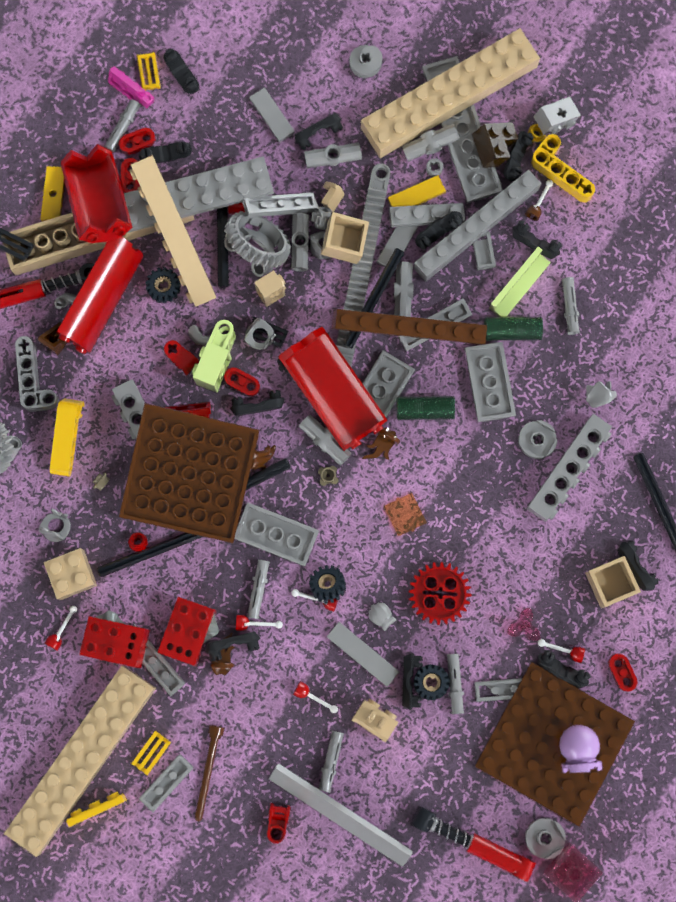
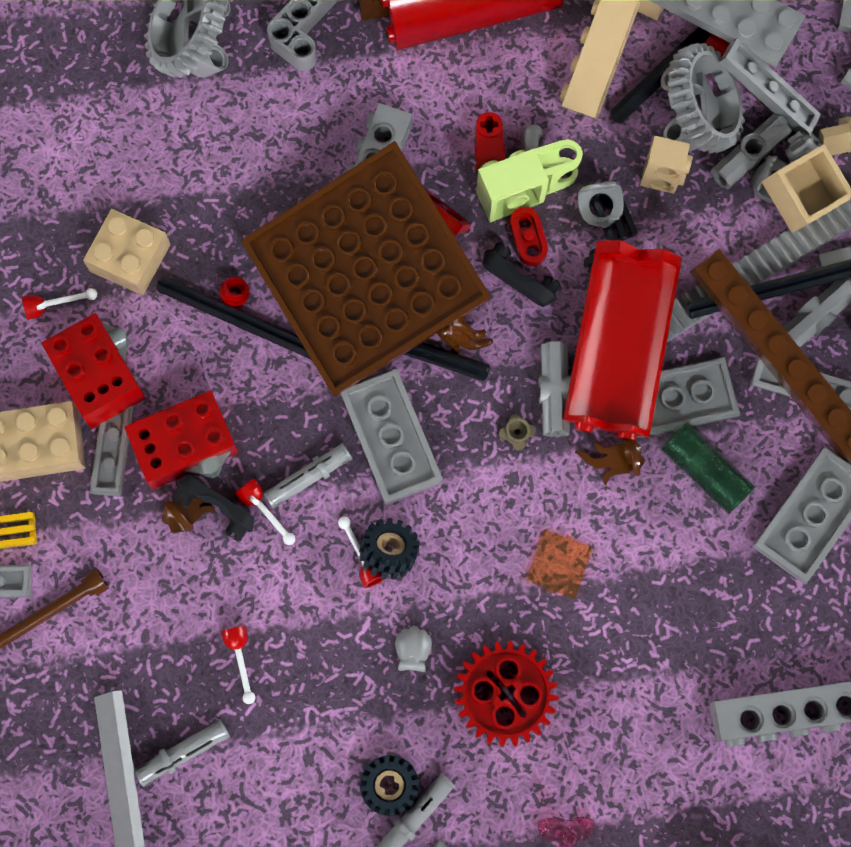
camera: 45 degrees right, 5 degrees down
(51, 535) = (153, 195): light grey piece -> none
(65, 436) = (278, 103): yellow beam -> none
(100, 481) = (264, 189): dark tan plate -> none
(158, 277) = (557, 43): black bush -> none
(278, 821) = (51, 755): red piece -> none
(363, 654) = (346, 671): light grey tile -> none
(375, 720) = (279, 757): tan hinge -> none
(408, 699) = (342, 777): black piece -> none
(539, 450) = (814, 621): light grey plate -> none

